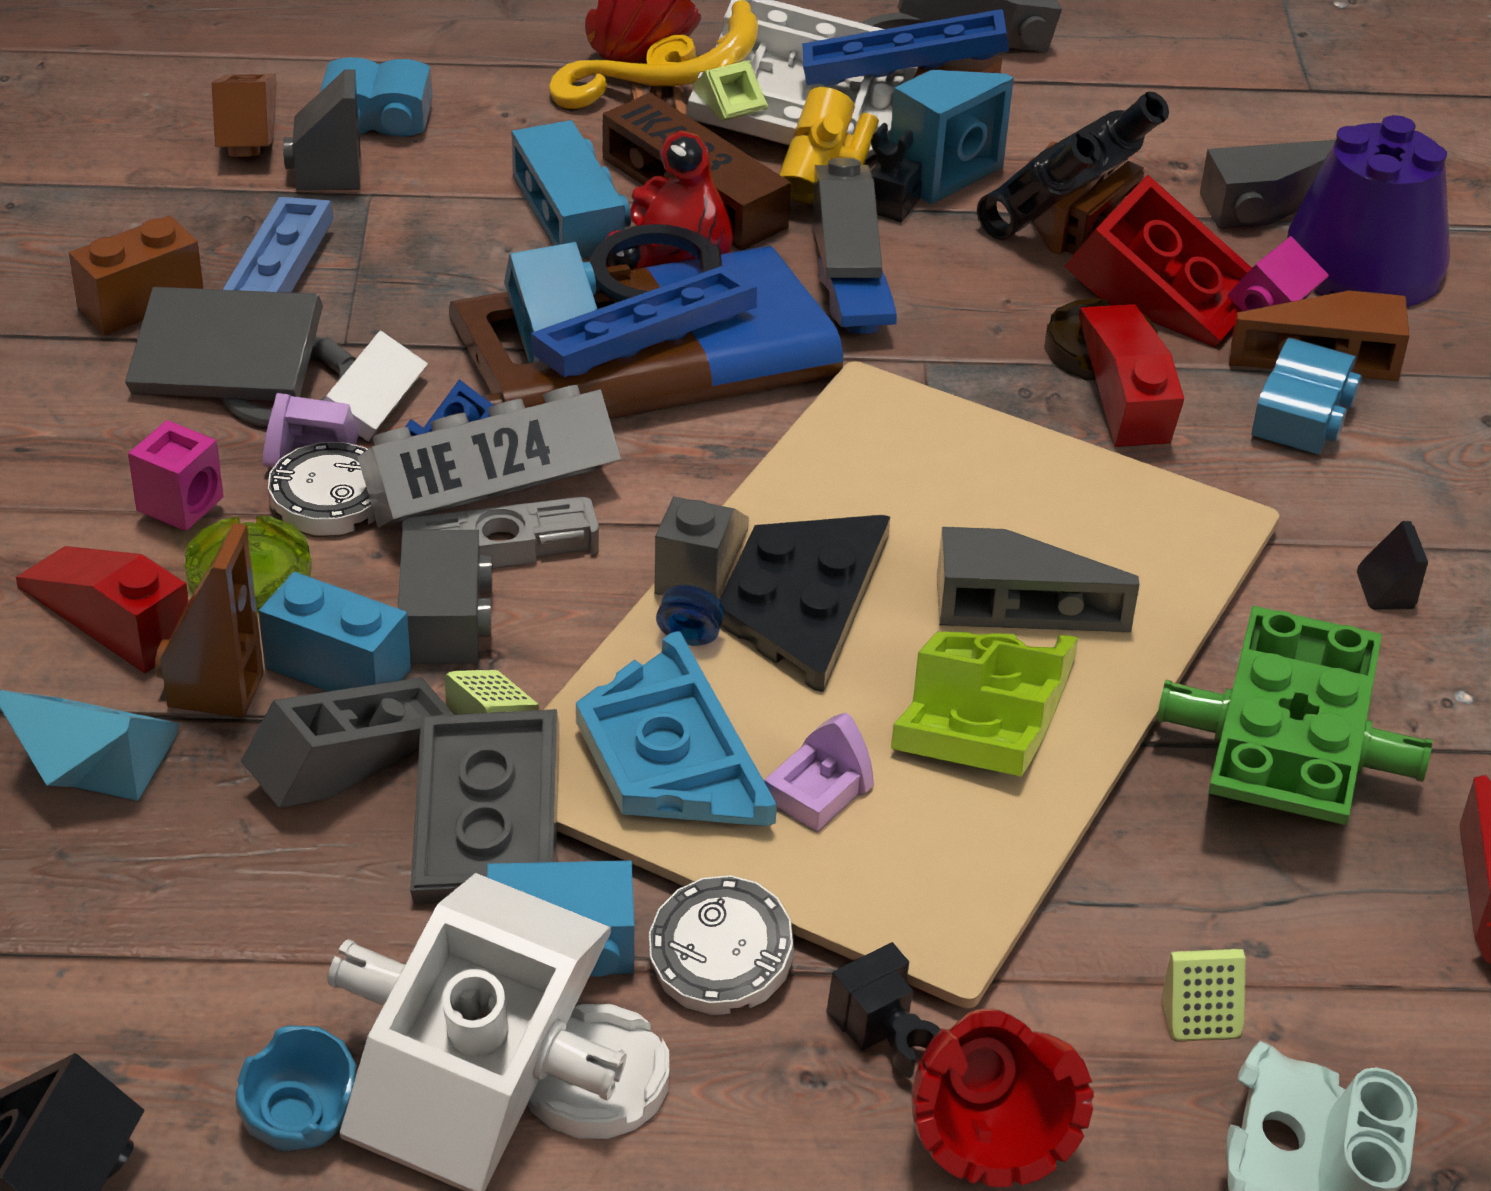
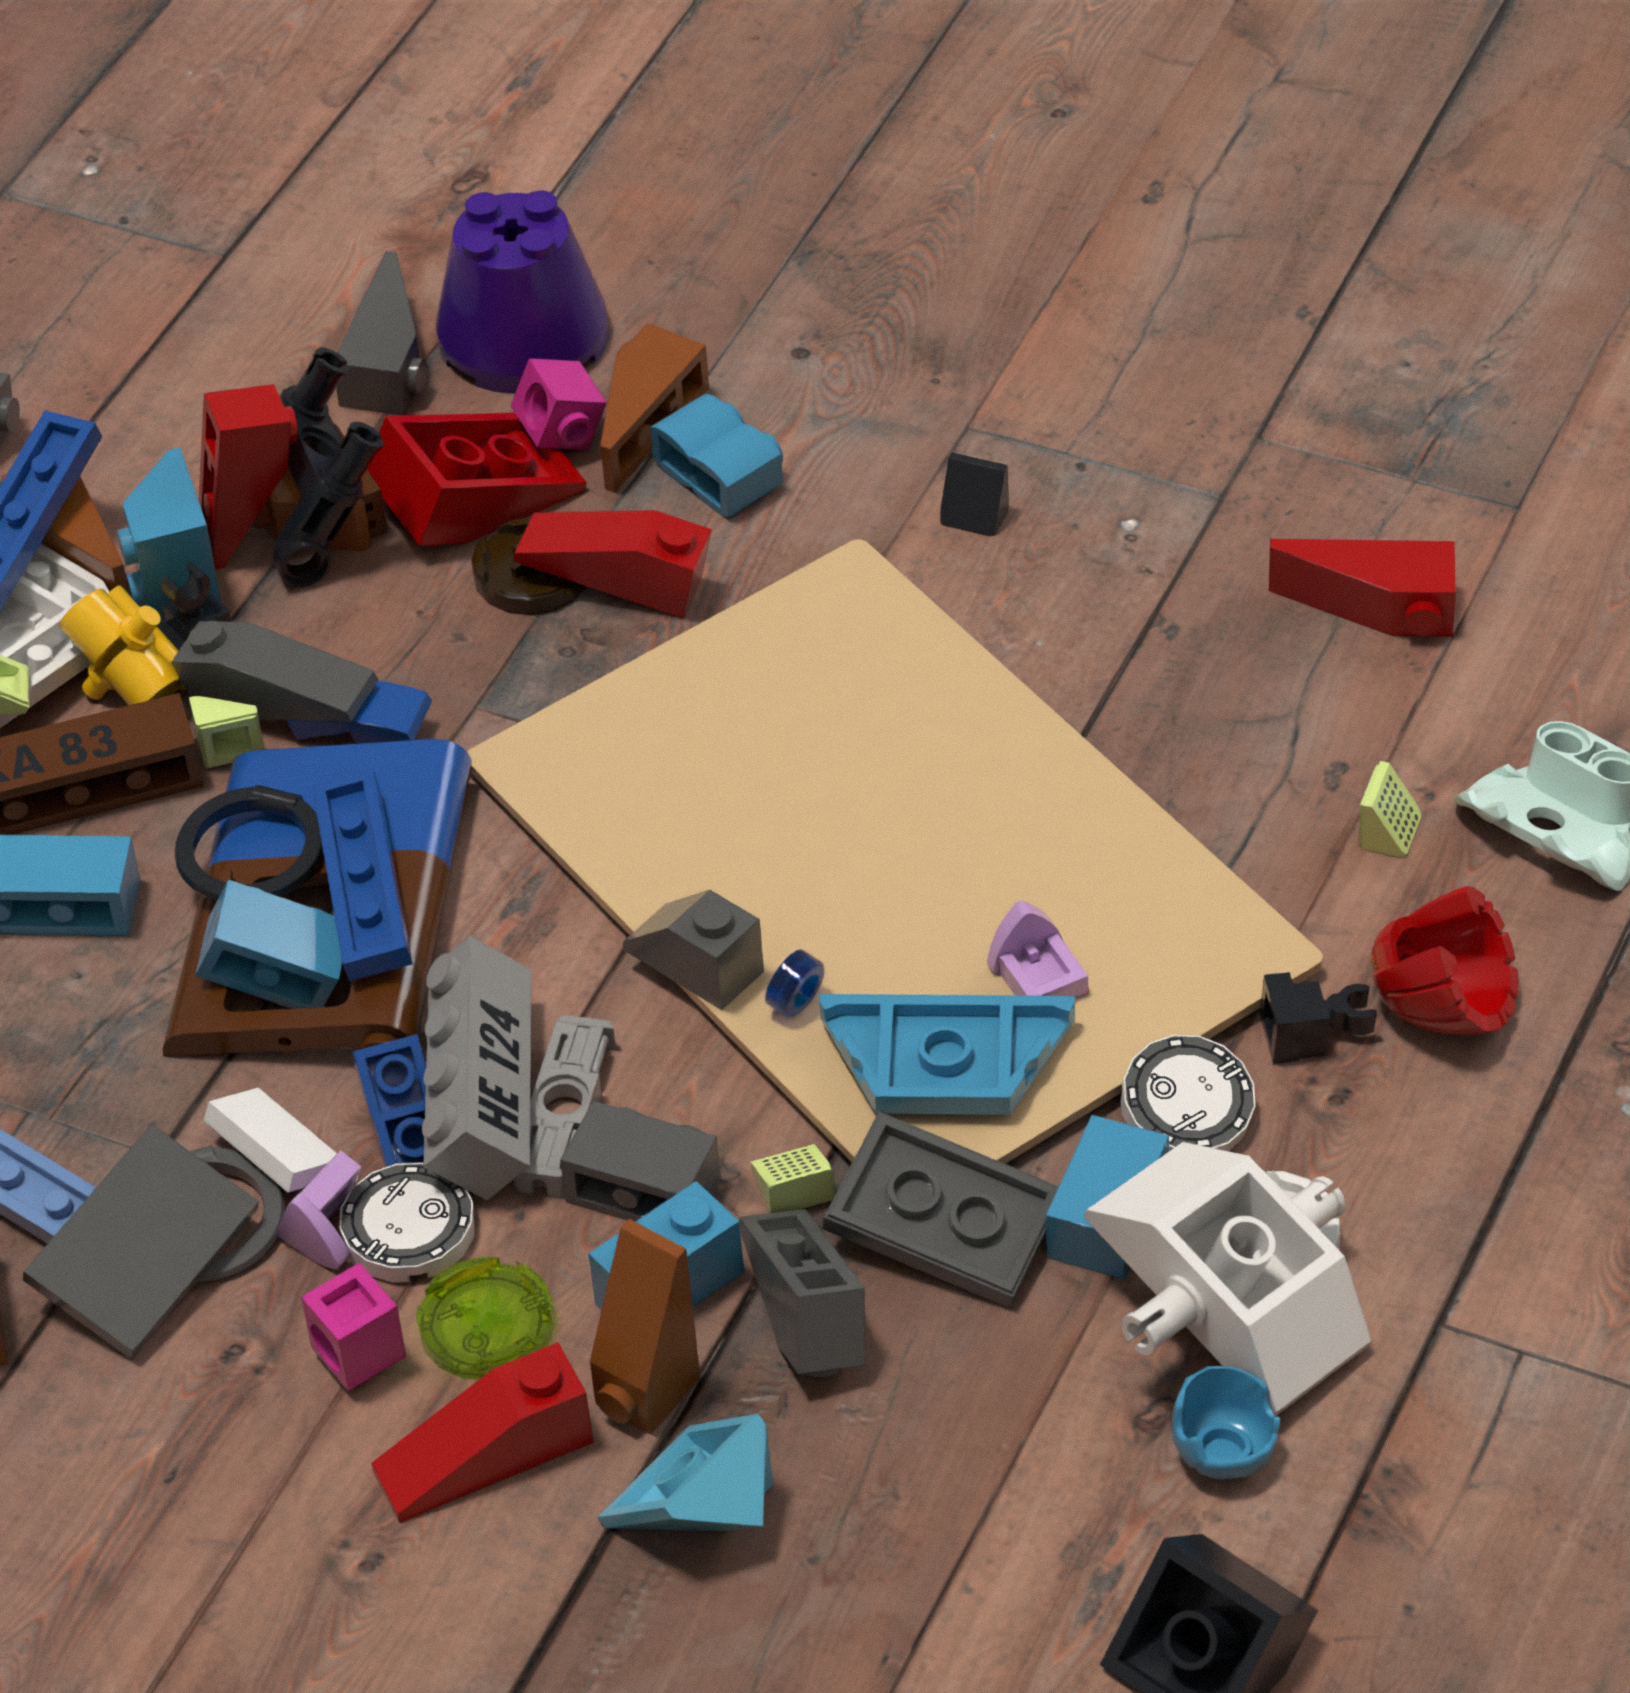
camera: 60 degrees left, 5 degrees up
(683, 202) = (158, 801): red head -> none
(783, 227) = (225, 729): none -> yellowish green slope
(802, 588) = (797, 891): black wing -> none
(983, 699) = (1006, 820): lime slope -> none
(1023, 583) = (879, 738): dark grey slope -> none
(1034, 105) = (241, 461): none -> red slope
(1297, 718) = (1138, 632): bright green slope -> none

